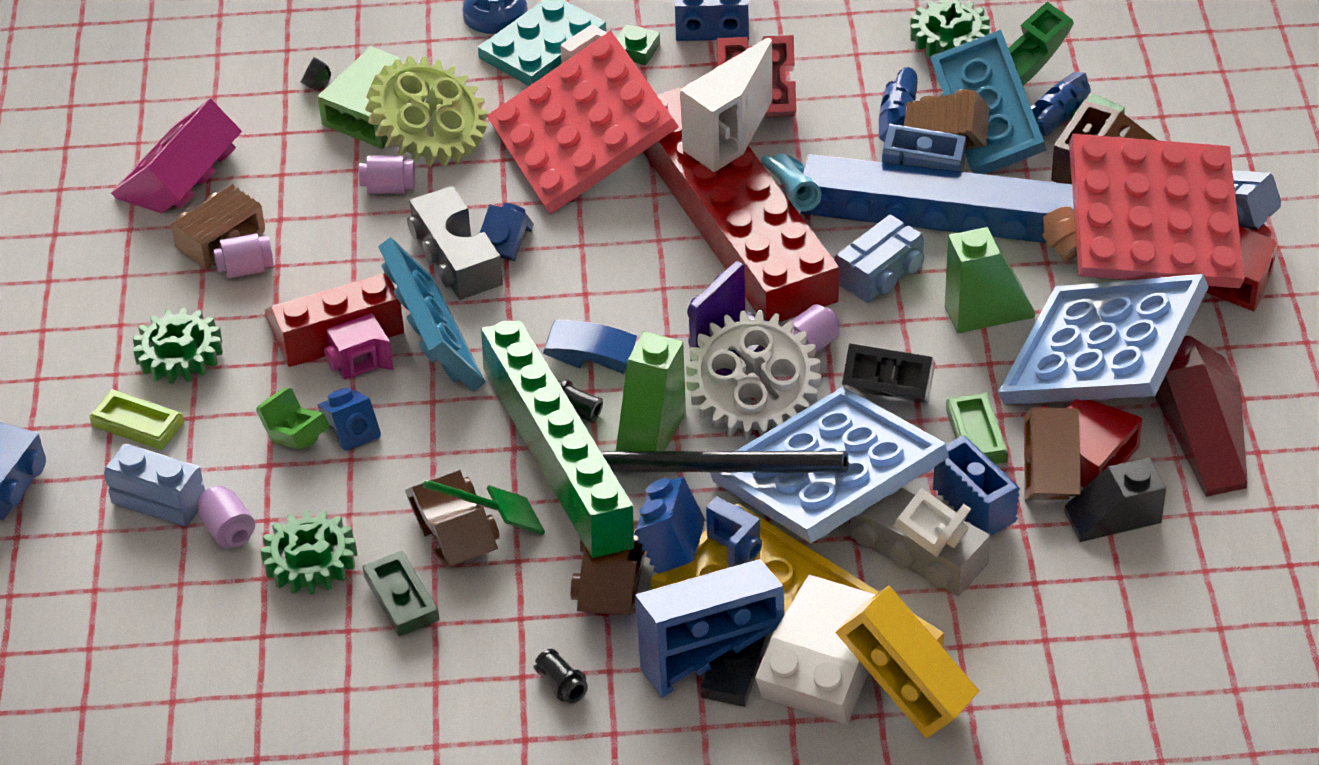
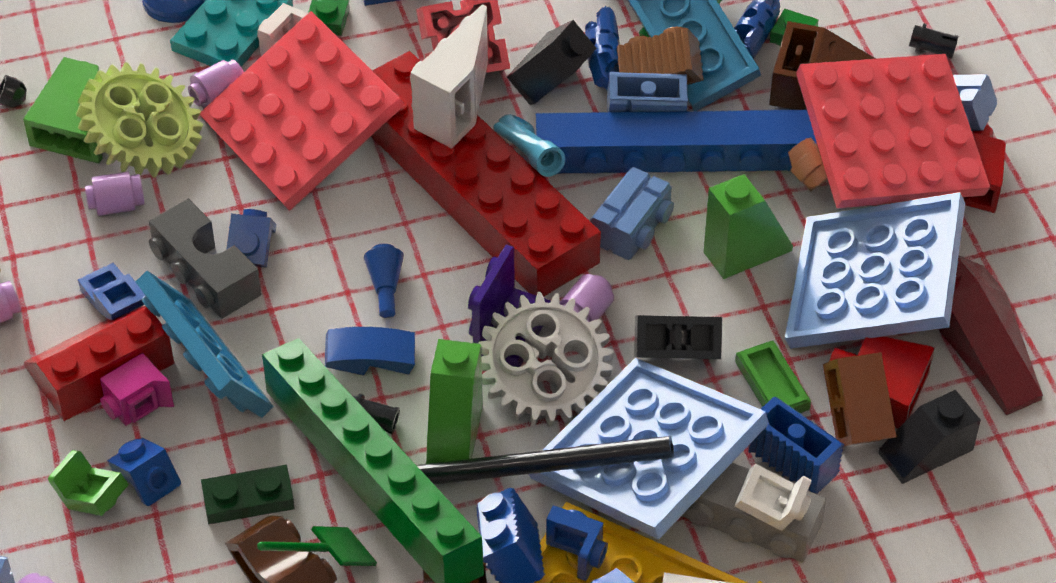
camera: 15 degrees left, 5 degrees up
(359, 258) = (111, 291): none -> blue slope
(439, 453) = (247, 494): none -> dark green plate
(506, 86) = (213, 81): none -> lavender brick
(624, 275) = (384, 268): none -> blue cone
(839, 111) = (551, 61): none -> black slope
(1239, 142) = (933, 41): none -> black pin

